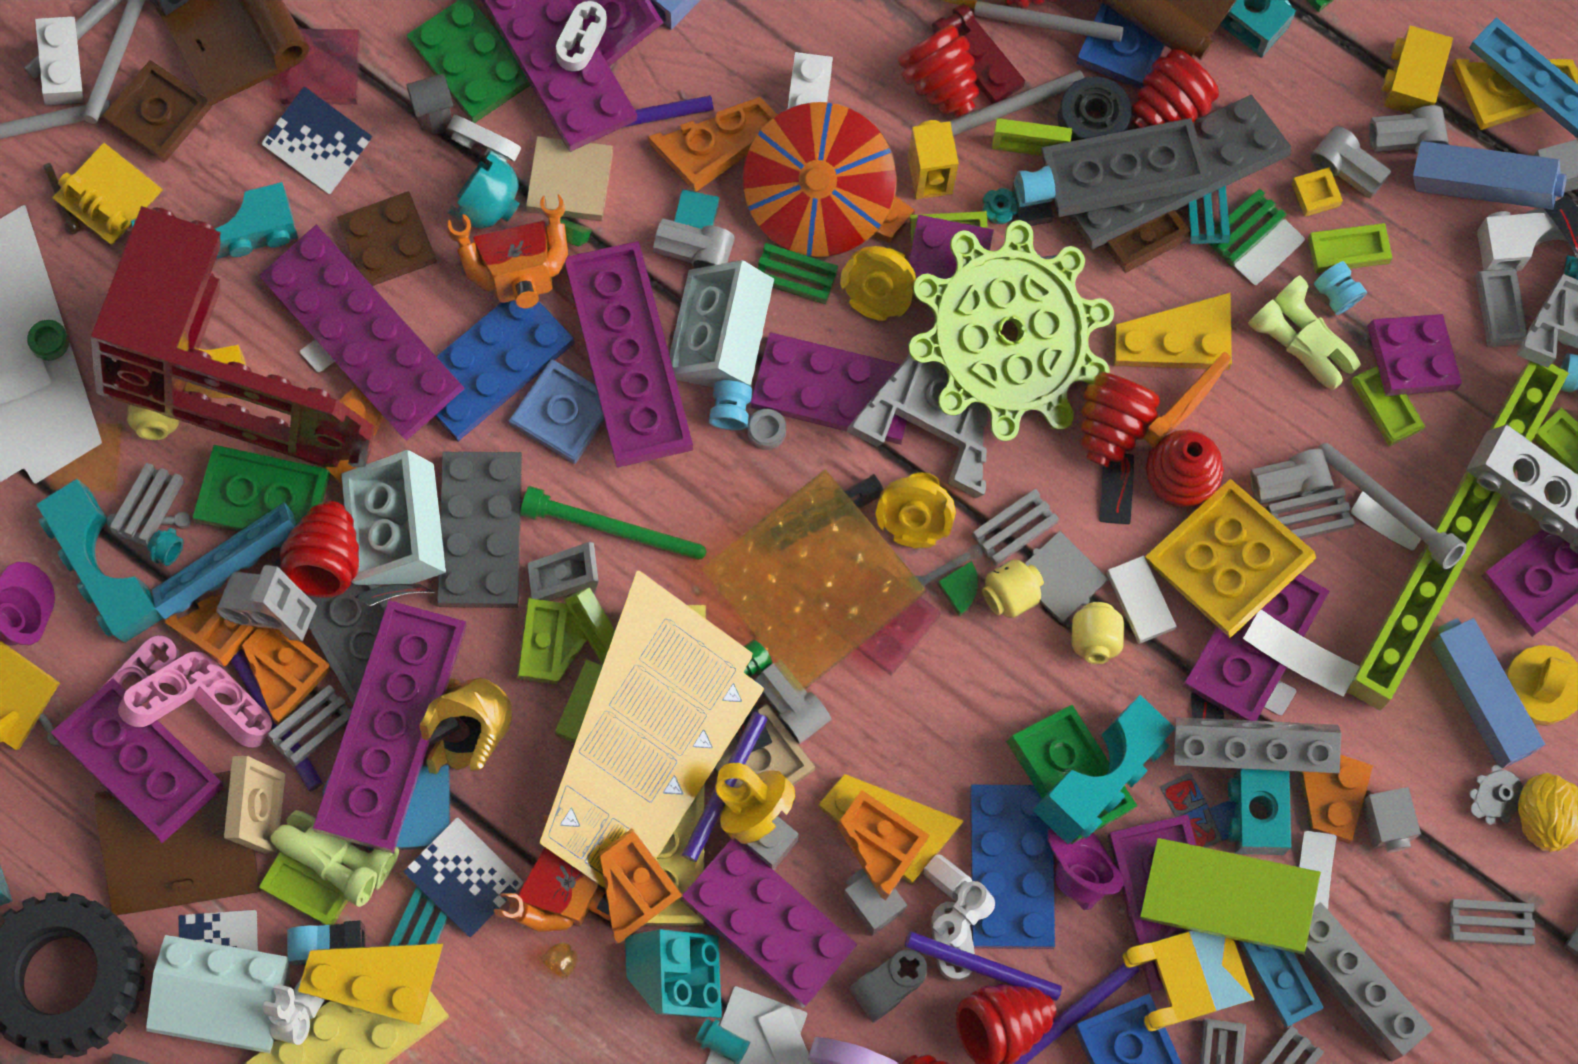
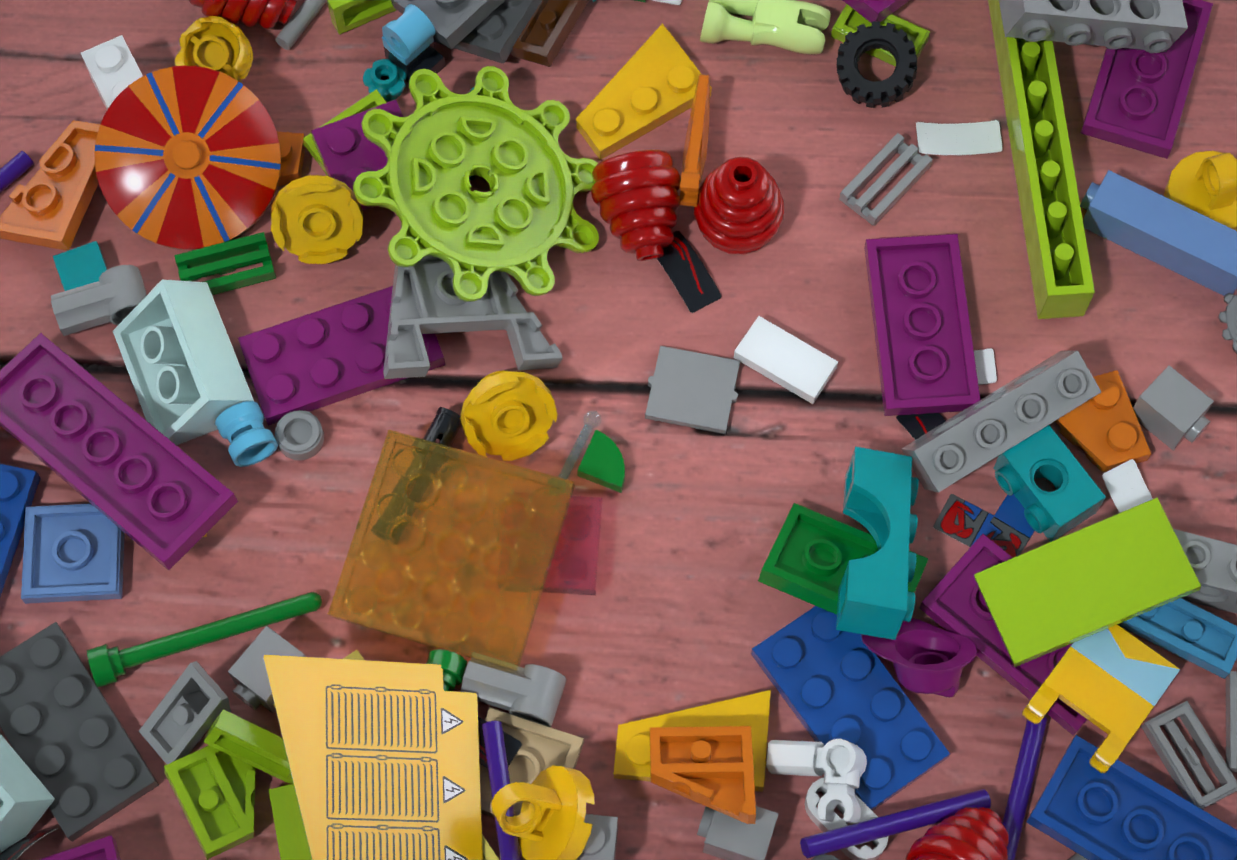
camera: 30 degrees left, 5 degrees down
(625, 571) = (250, 670): none -> light grey brick
(891, 107) = (216, 45): none -> yellow hair
(932, 159) = (289, 71): yellow brick -> none
(1012, 588) = (656, 428): light yellow head -> none
(1041, 508) = (626, 336): light grey tile -> none
(1097, 632) = (768, 417): light yellow head -> none
(1230, 557) = (844, 262): yellow plate -> none
(1300, 654) = (975, 309): white sticker -> none
(1301, 475) = (849, 147): light grey piece -> none
(1357, 403) = (875, 38): none -> black tyre
(1445, 548) = (1039, 118): light grey piece -> none

